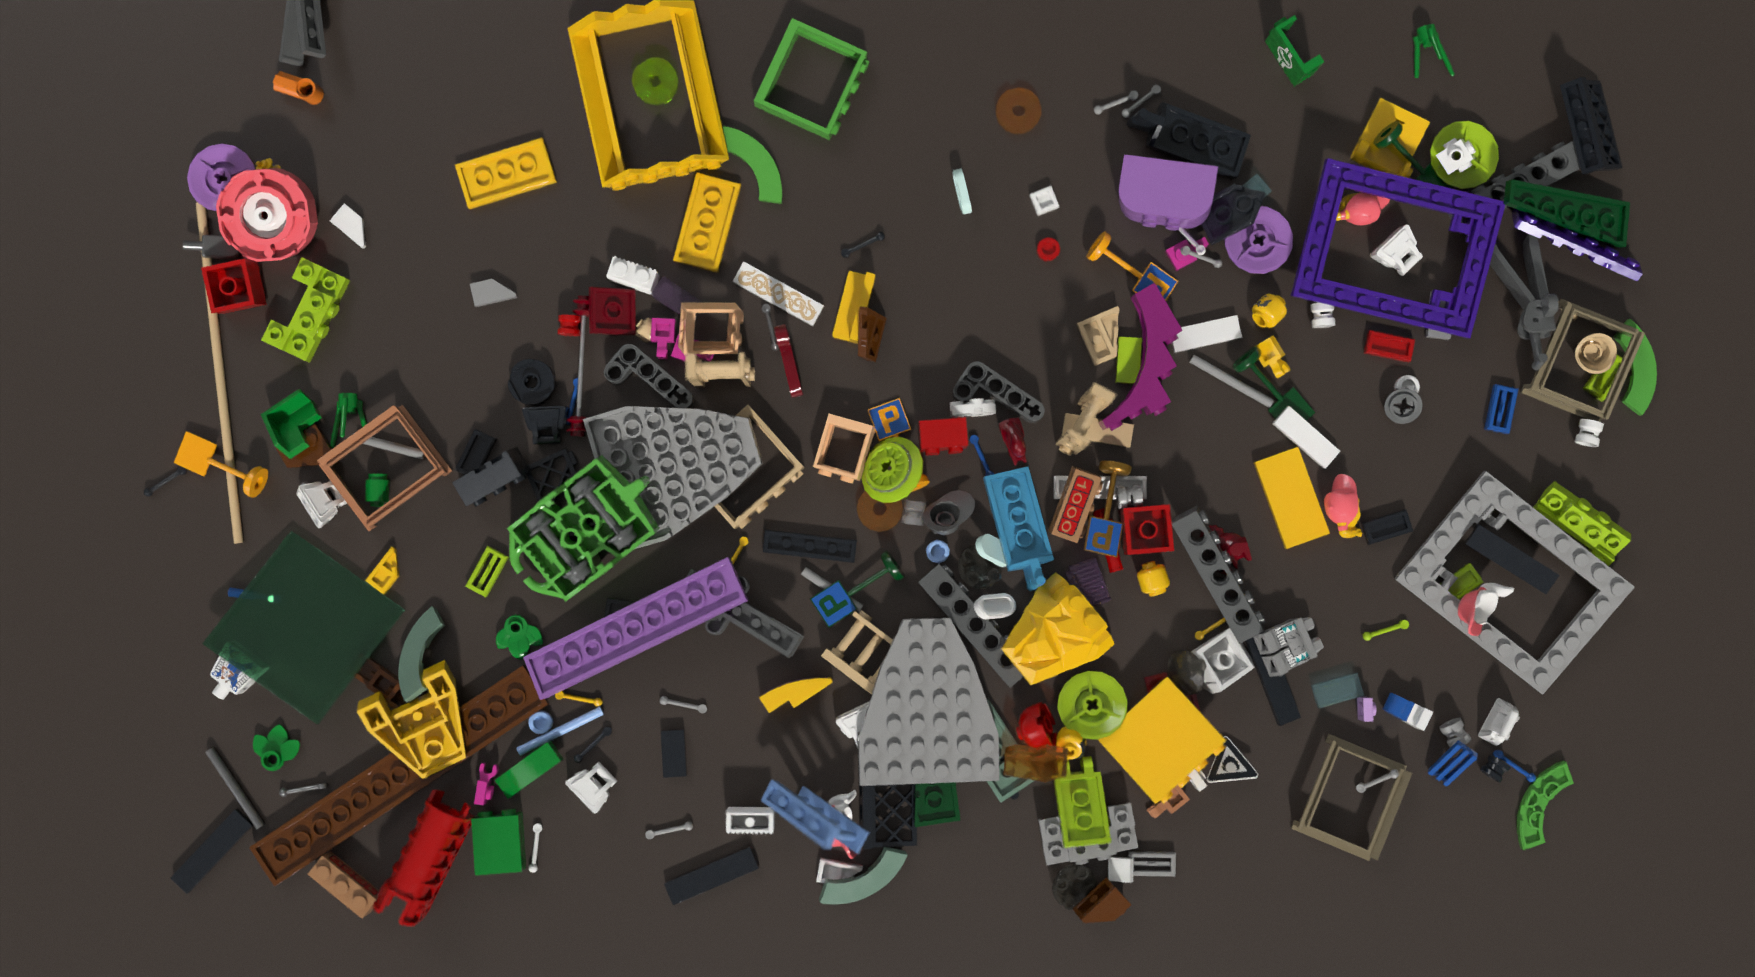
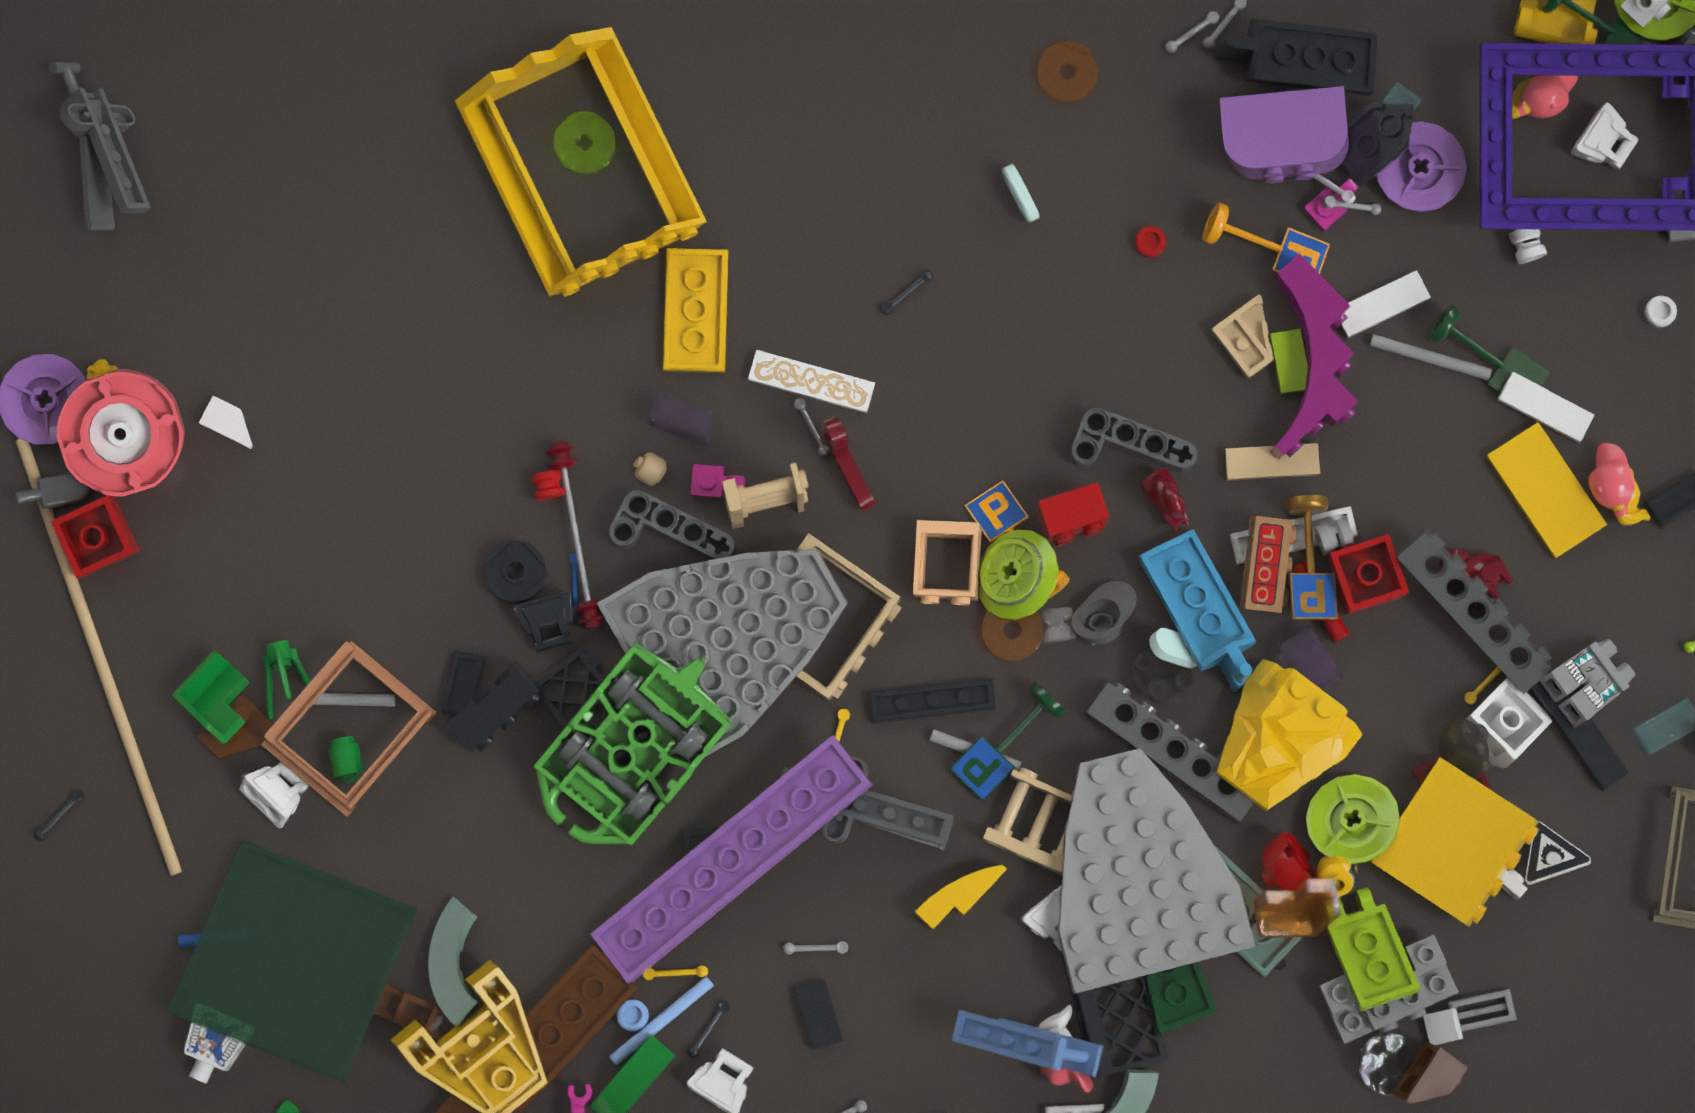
camera: 15 degrees left, 5 degrees down
(197, 454) = (94, 770): light orange piece -> none
(298, 87) = (115, 257): orange piece -> none
(313, 314) = (206, 550): lime bracket -> none
(385, 572) = (380, 866): yellow tile -> none
(490, 292) = (432, 467): light grey tile -> none
(496, 573) = (526, 838): lime tile -> none
(505, 173) = (415, 307): yellow tile -> none
(518, 640) = (577, 914): green plate -> none
(612, 311) = (600, 454): dark red tile -> none
(633, 275) = (617, 401): white brick -> none
(663, 333) = (673, 467): dark pink plate -> none
(687, 327) = (708, 452): light nougat window -> none
(750, 820) = (942, 1075): white brick -> none
(760, 162) = (746, 215): bright green tile -> none
(798, 28) = (800, 40): bright green window -> none
(855, 294) = (914, 375): yellow panel -> none
(870, 333) = (945, 404): reddish brown wing -> none
(937, 551) = (1101, 668): light blue tile -> none
(973, 408) = (1107, 469): white plate -> none
(974, 440) = (1114, 512): blue hinge -> none
(995, 606) = (1194, 720): white tile -> none
(1044, 200) = (1129, 180): white tile -> none
(1091, 404) = (1256, 428): tan fence -> none
(1153, 578) = (1391, 636): yellow head -> none
(1173, 804) = (1488, 925): nougat plate -> none
(1269, 310) = (1457, 255): yellow head -> none
(1271, 355) = (1473, 312): yellow plate -> none
(1389, 346) = (1624, 264): red tile -> none
(1409, 413) = (1672, 345): dark grey gear -> none

